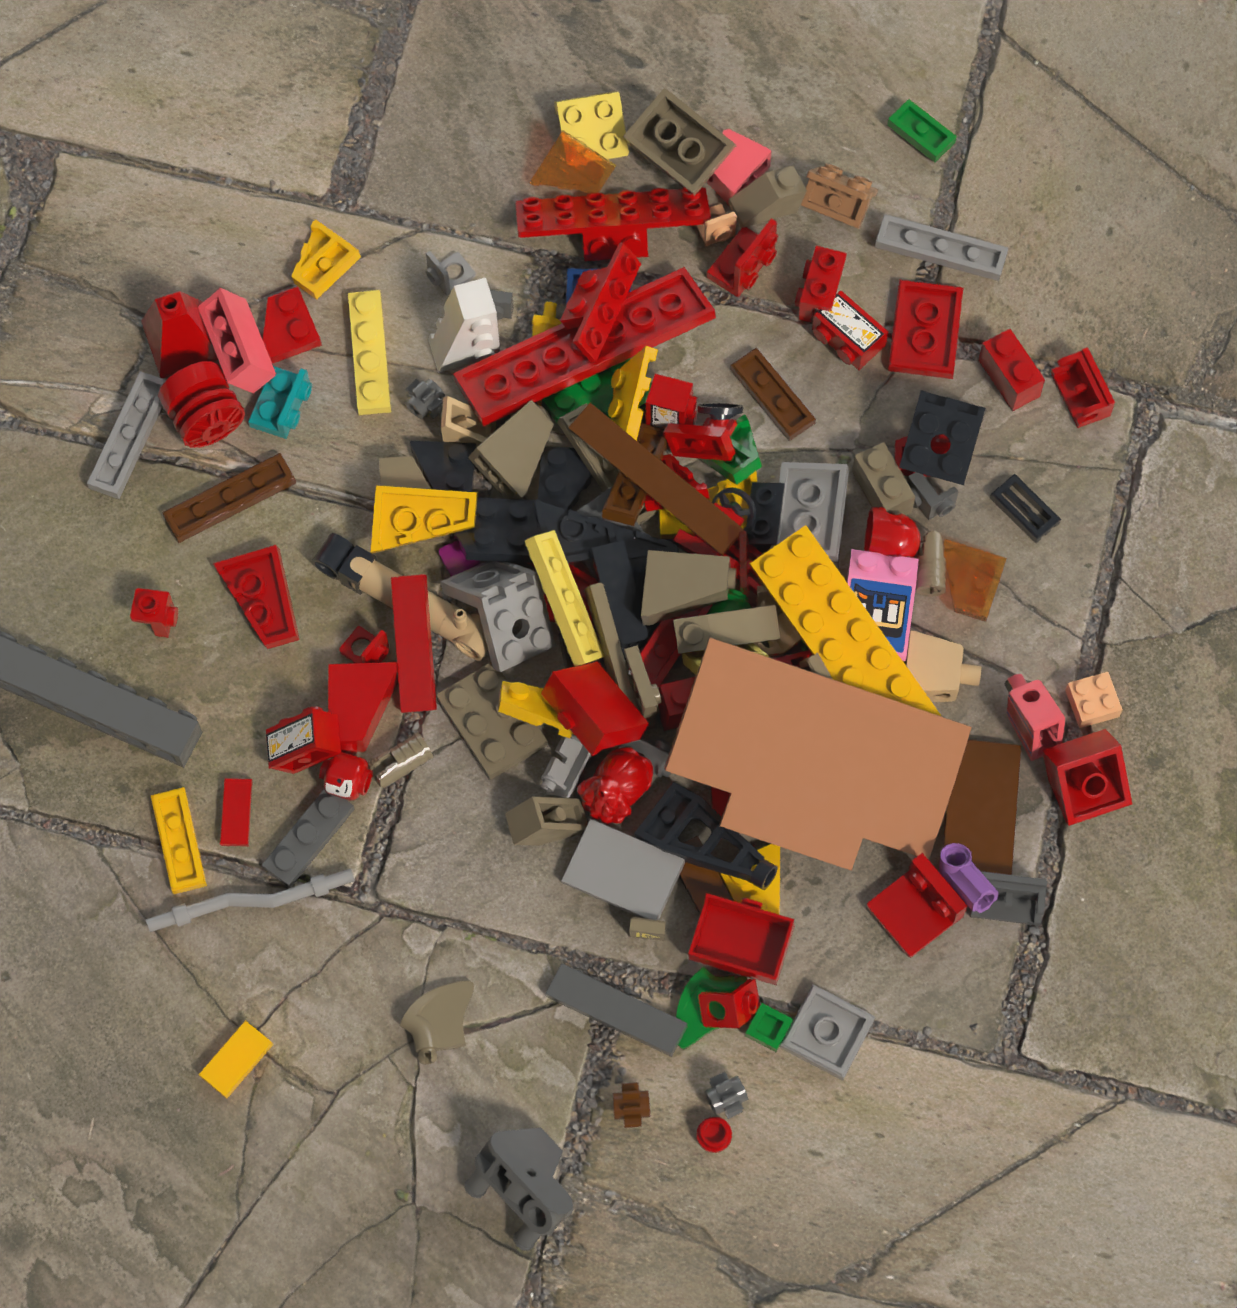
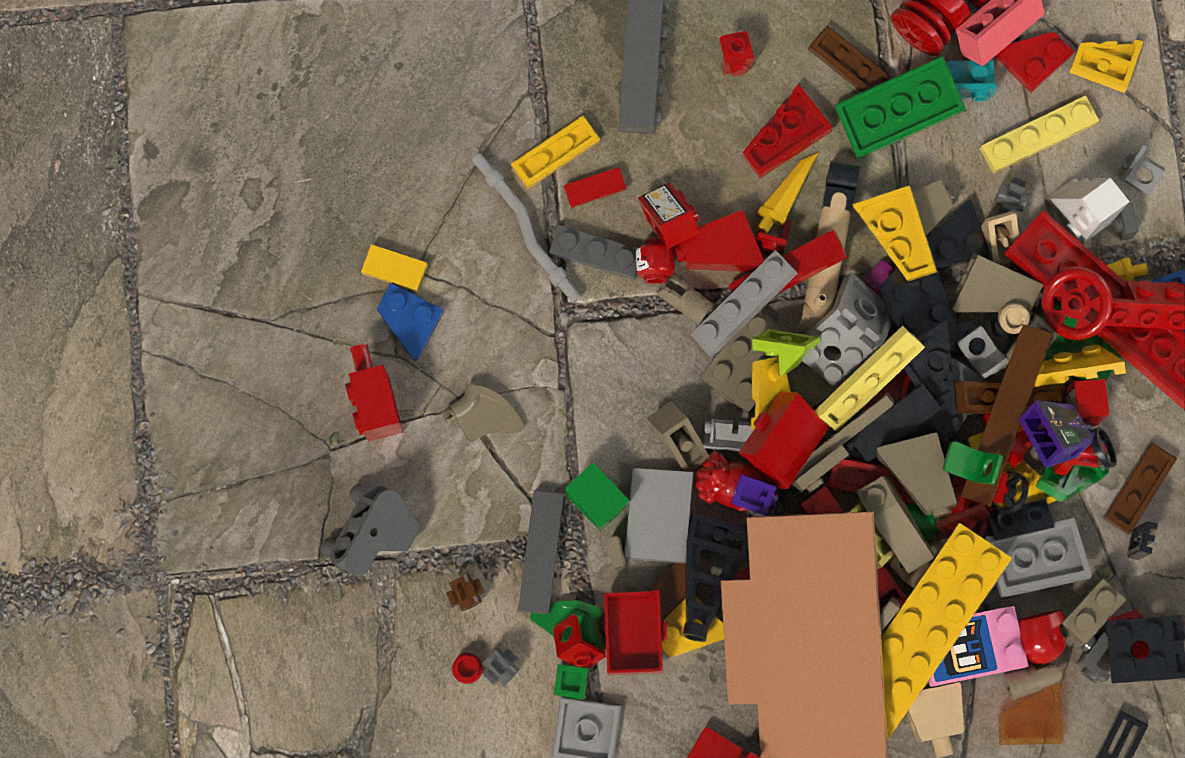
camera: 70 degrees right, 10 degrees up
(285, 470) = (900, 107): none -> green tile
(299, 1062) = (409, 318): none -> blue wing
(334, 628) = (780, 202): none -> yellow bar
(376, 1127) = (373, 396): none -> red brick
(430, 700) = (743, 304): none -> light grey plate
(498, 664) = (789, 346): none -> lime slope
(545, 353) = (1102, 304): none -> red plate
(554, 441) = (1012, 317): none -> tan tile
(580, 927) = (597, 497): none -> green piece
(589, 483) = (989, 360): none -> light grey bracket
(642, 757) = (754, 495): none -> dark purple bracket
(692, 435) = (1056, 431): none -> dark purple torso
(693, 528) = (971, 463): none -> green bracket
(833, 403) = (1138, 546): none -> black tile

